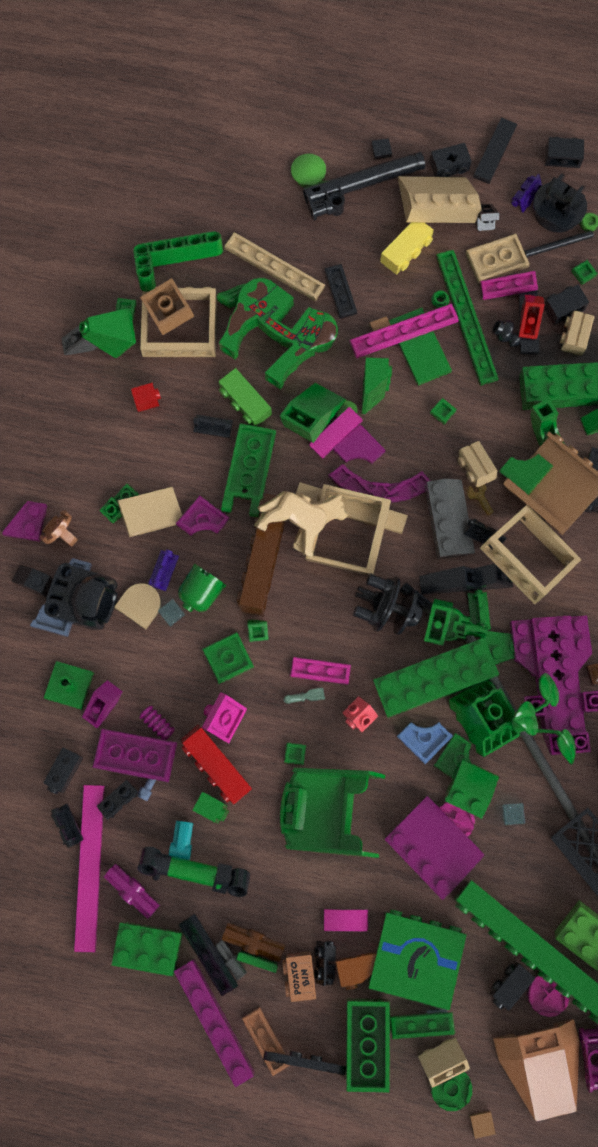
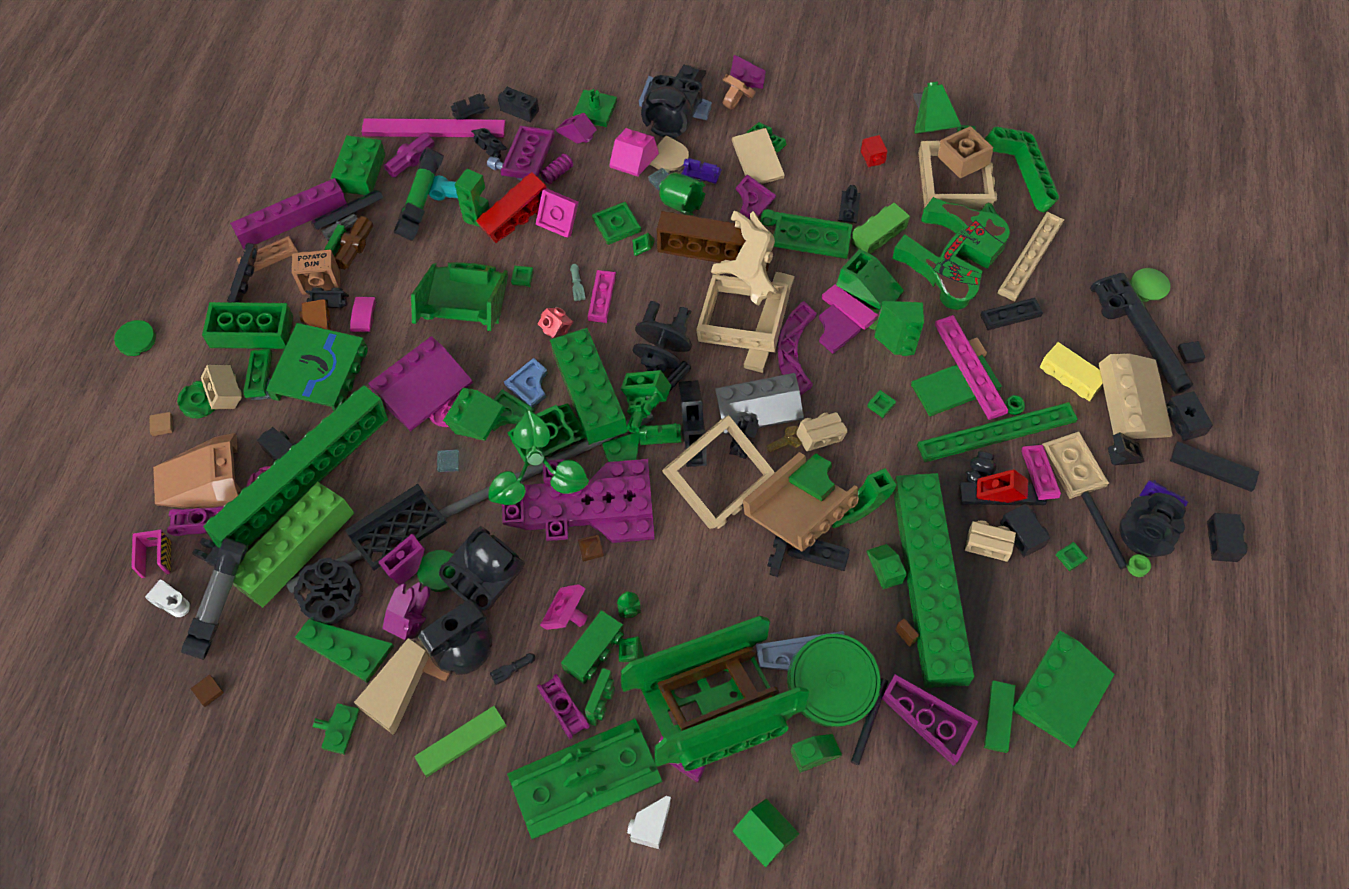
camera: 90 degrees right, 15 degrees down
(142, 640) = (633, 152): none -> dark pink slope

